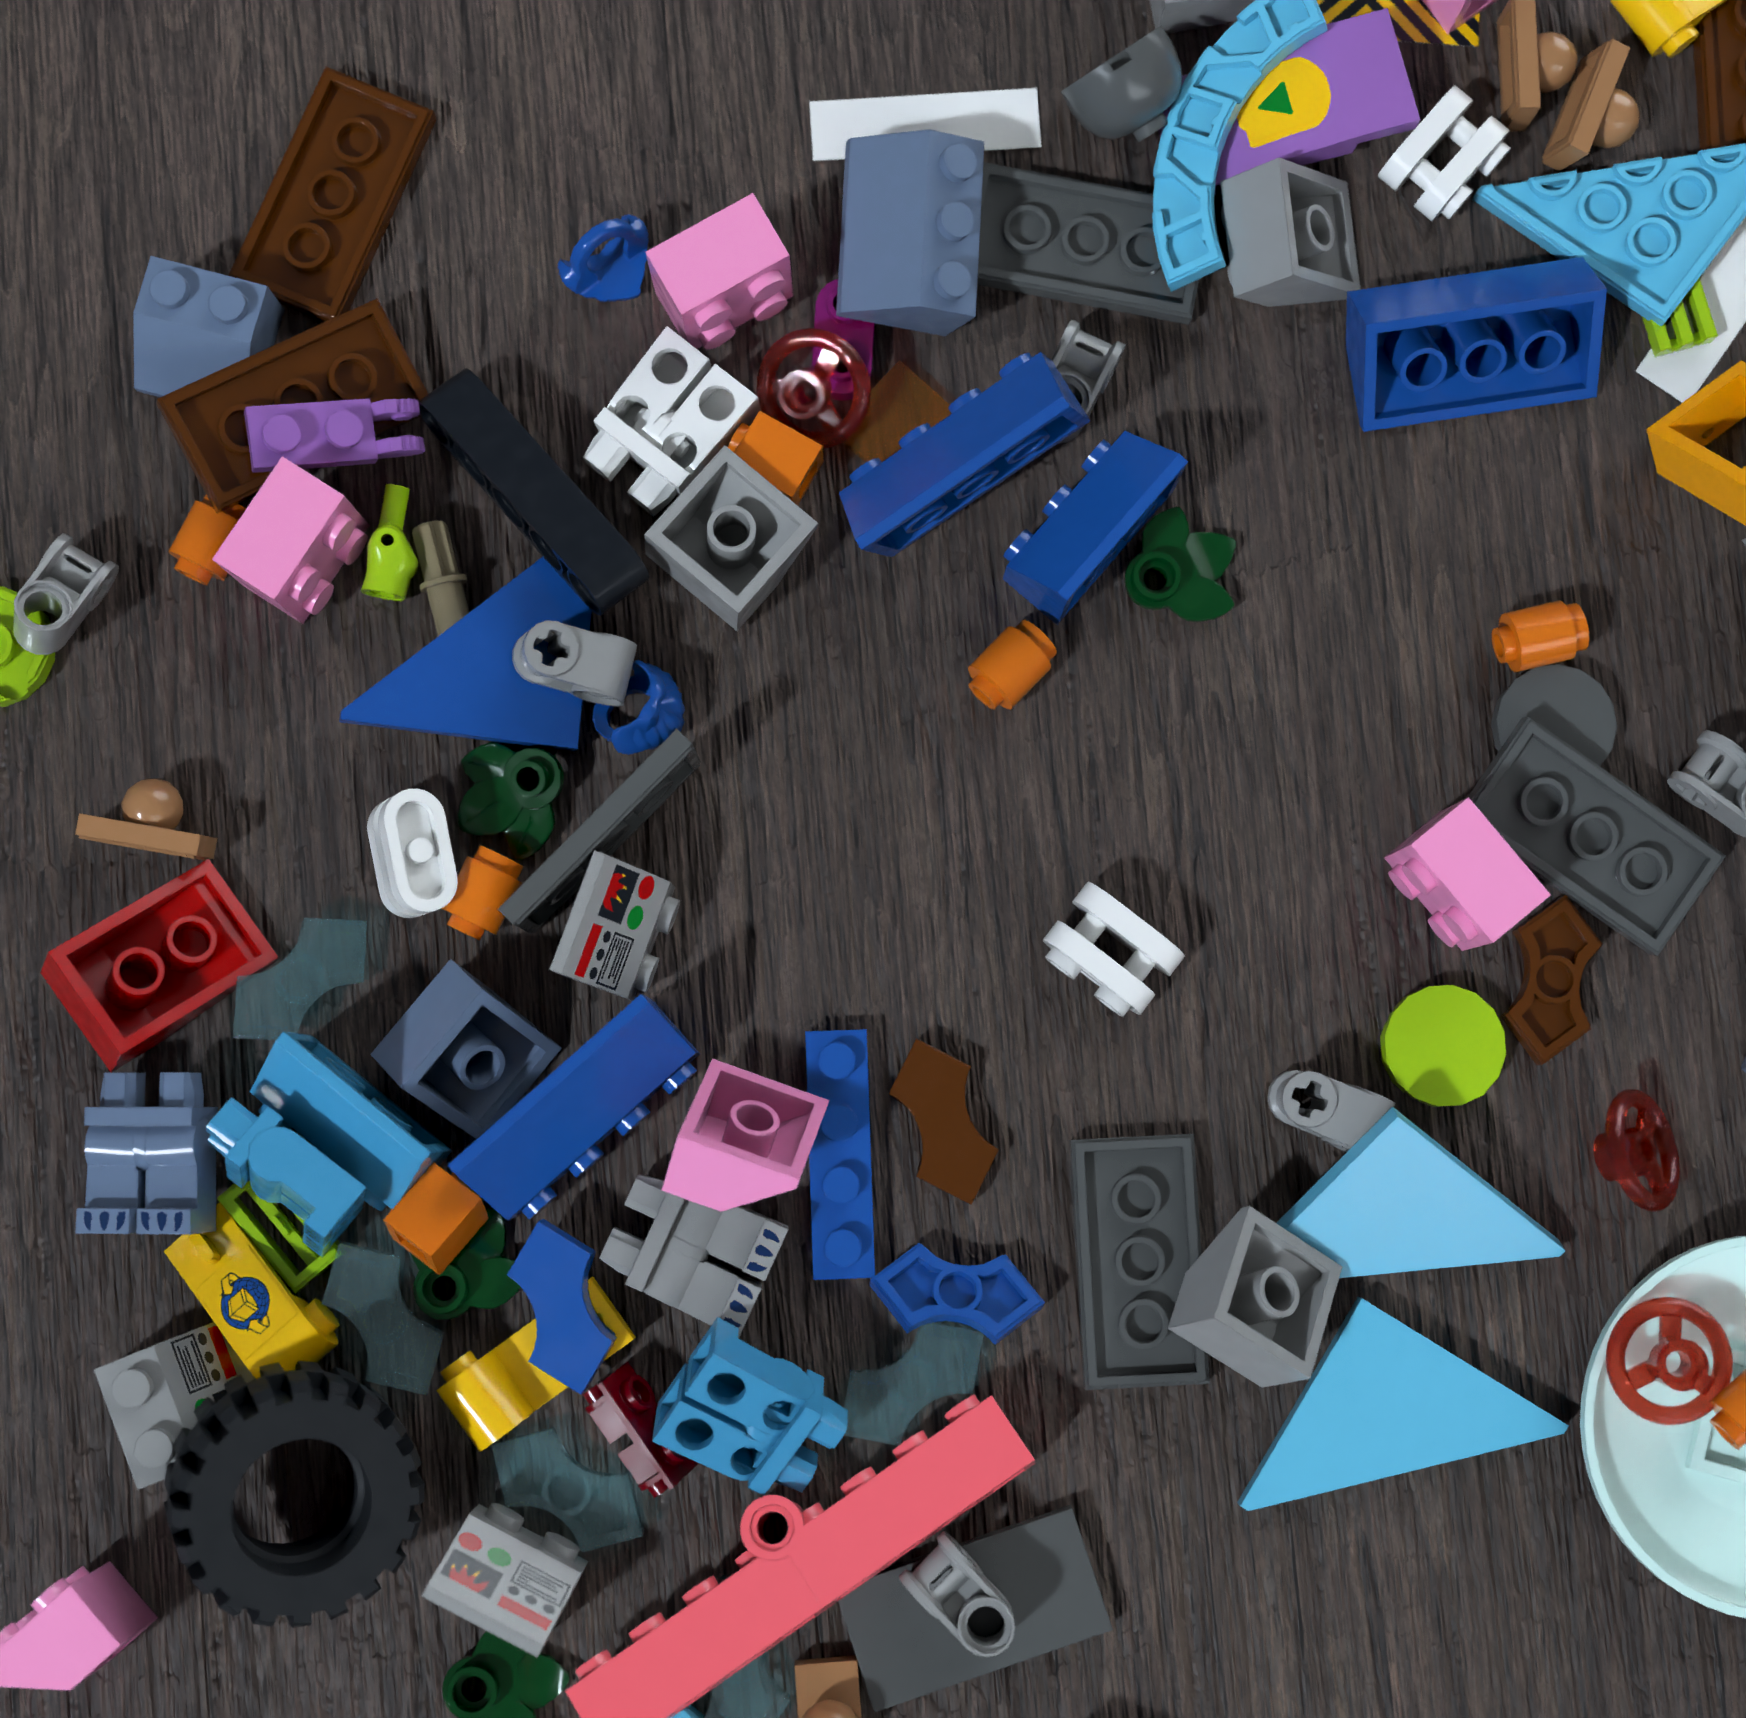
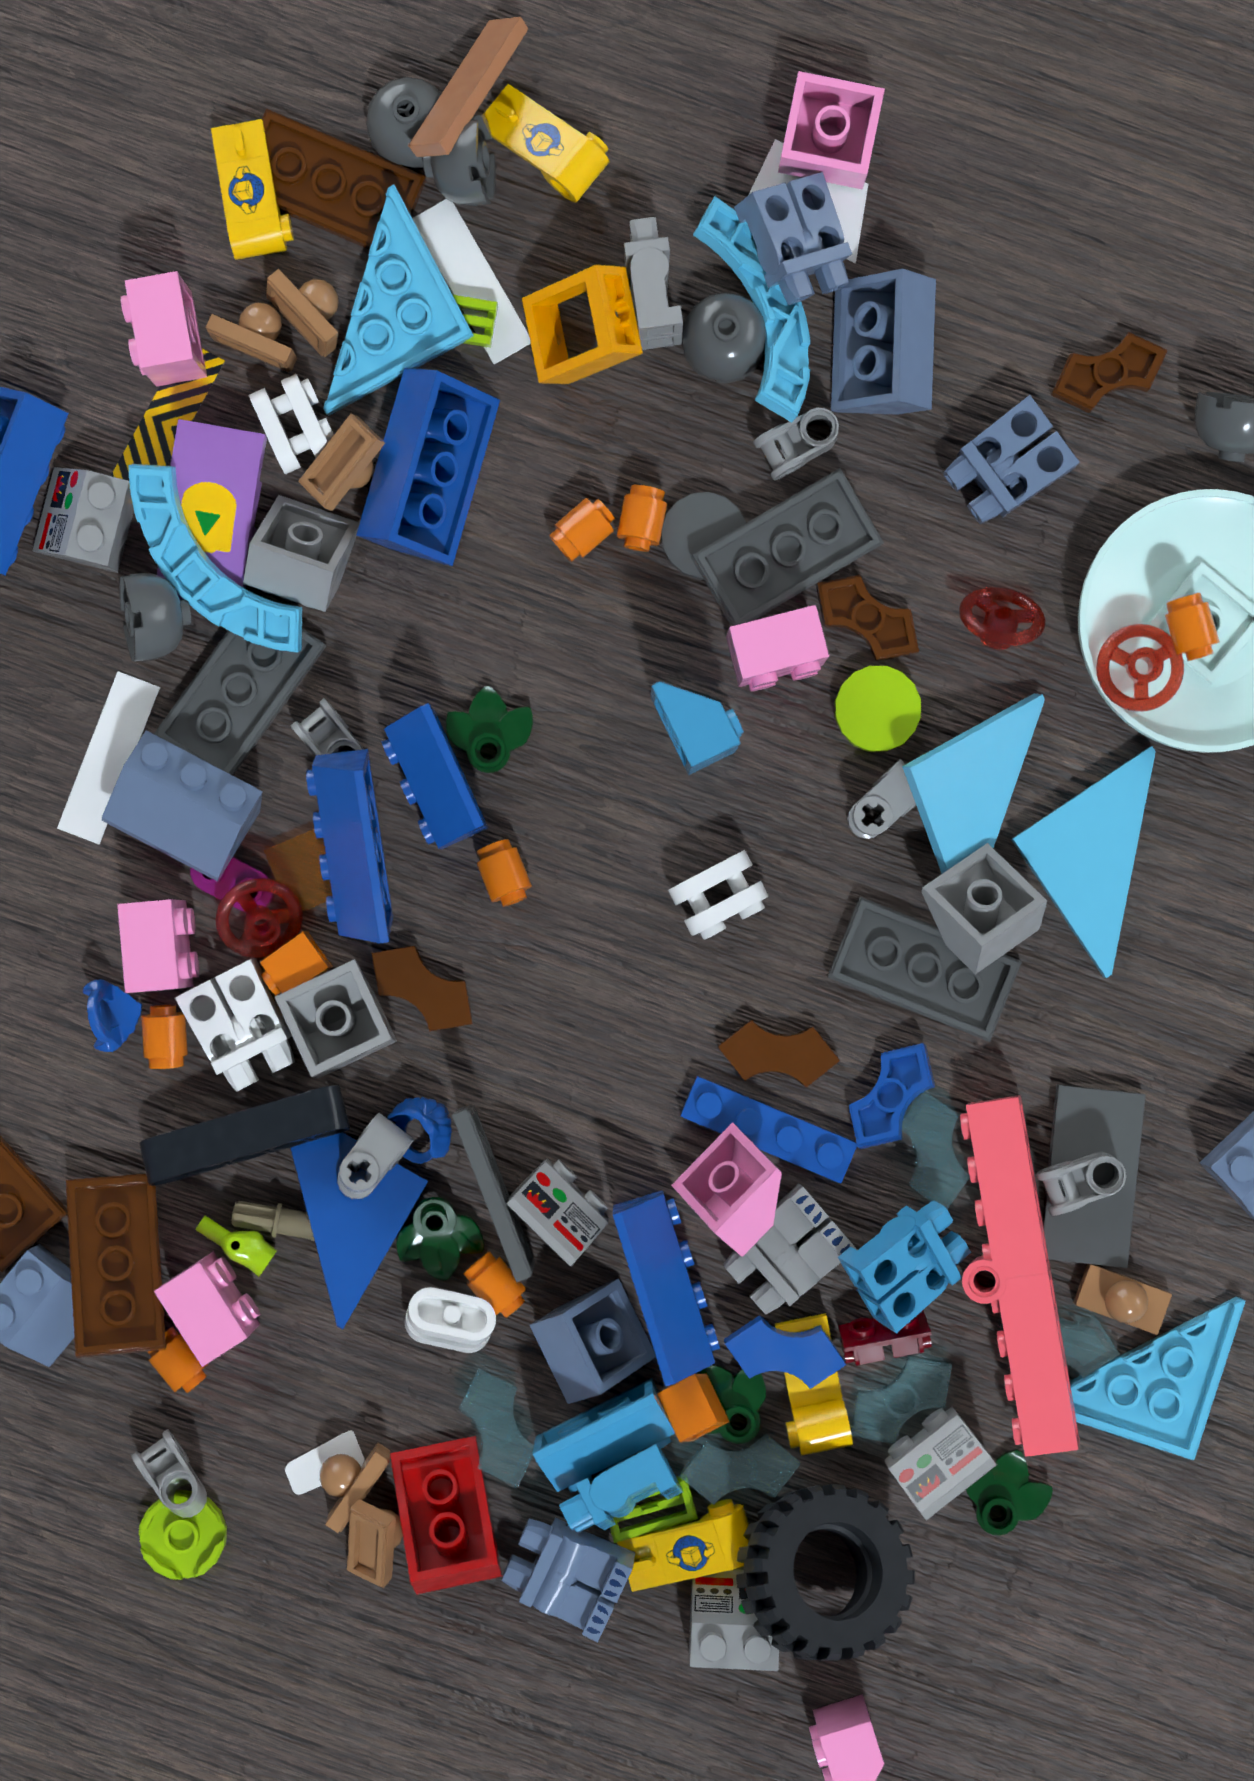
camera: 60 degrees left, 5 degrees up
(83, 884) = (372, 1542): none -> medium nougat tile
(141, 760) = (304, 1470): none -> white sticker
(328, 433) = (145, 1255): medium lavender hinge -> none
(610, 341) = (164, 1037): none -> orange brick
(823, 603) = (405, 976): none -> reddish brown tile
(1320, 817) = (696, 726): none -> dark azure slope
(1429, 234) = (343, 463): none -> medium nougat tile
(1490, 568) = (582, 529): none -> orange brick

